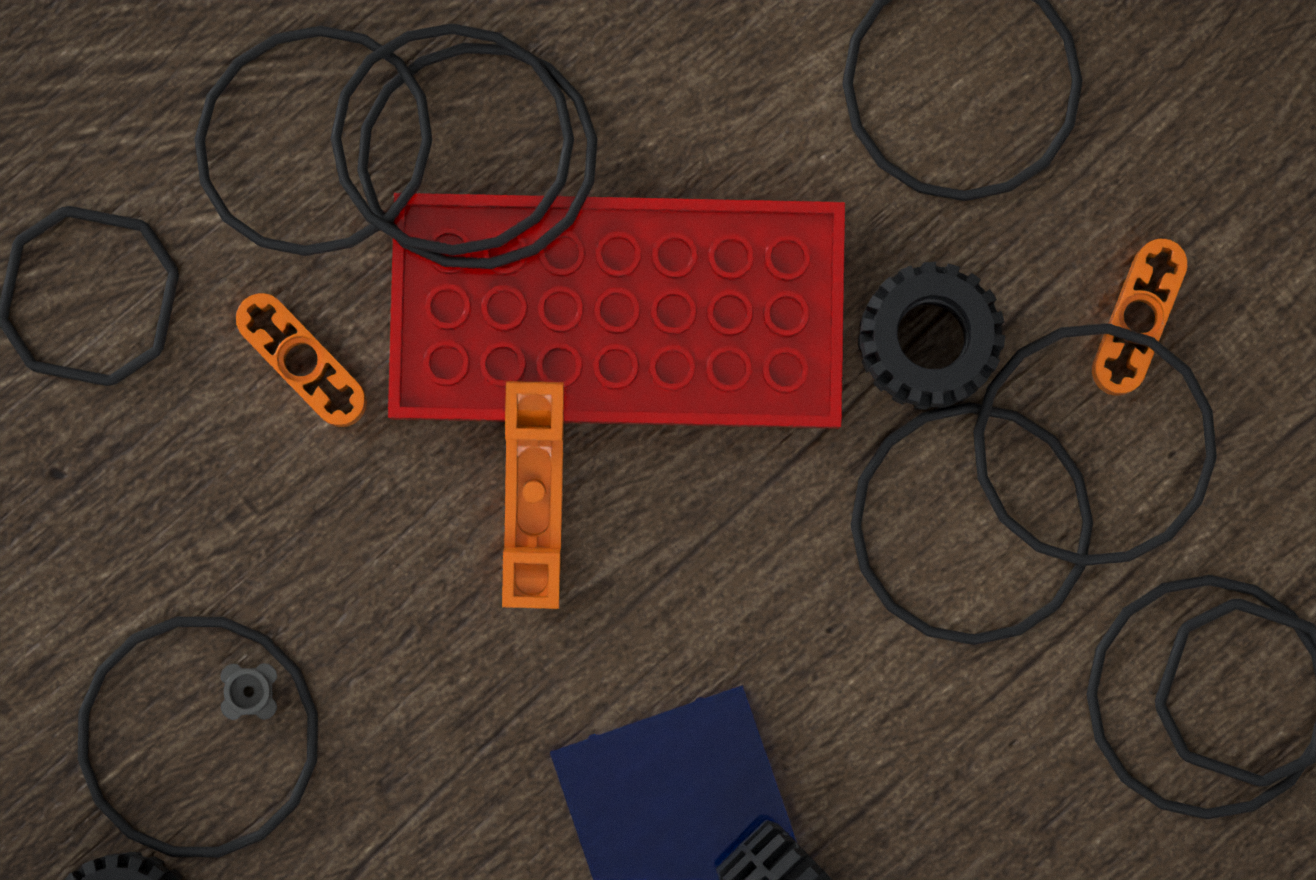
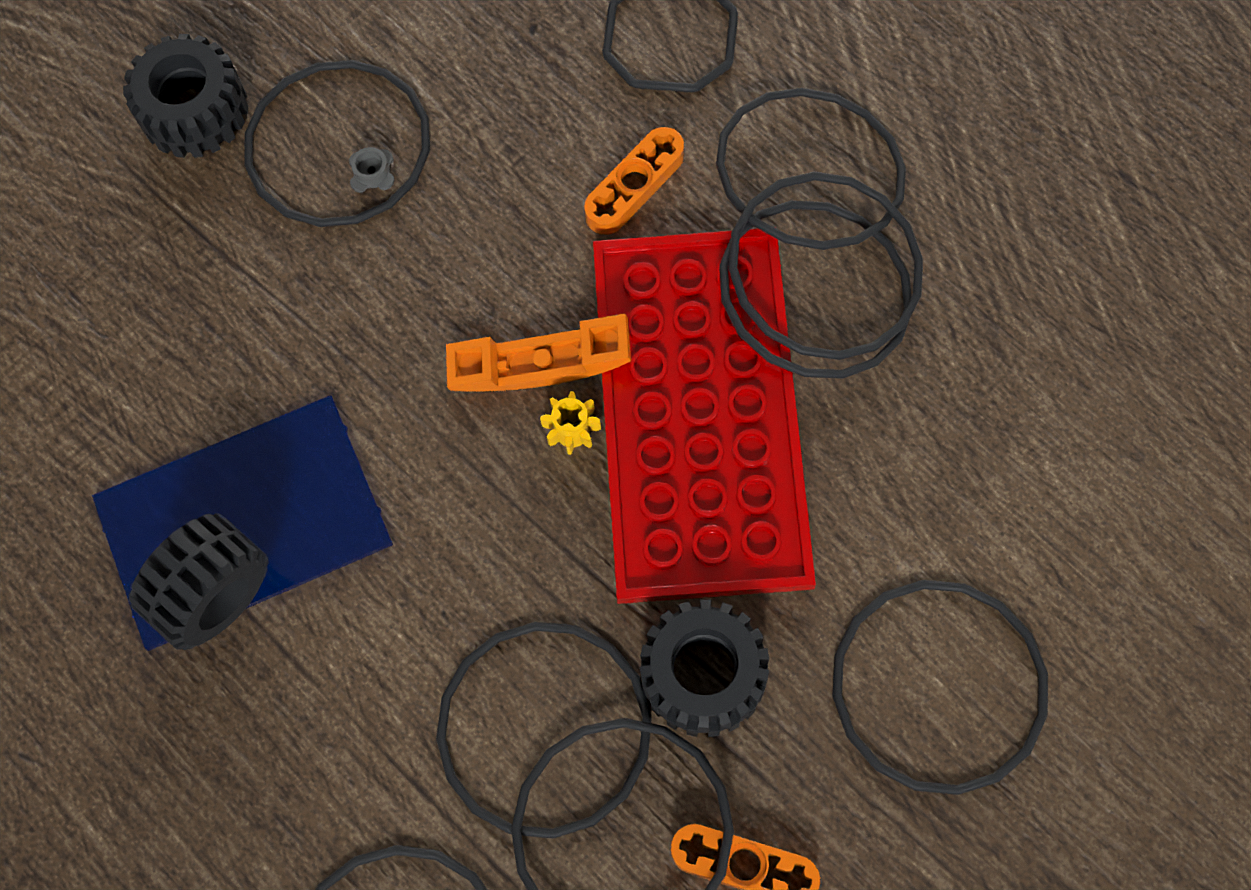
camera: 90 degrees right, 15 degrees down
(623, 447) = (567, 434): none -> yellow gear

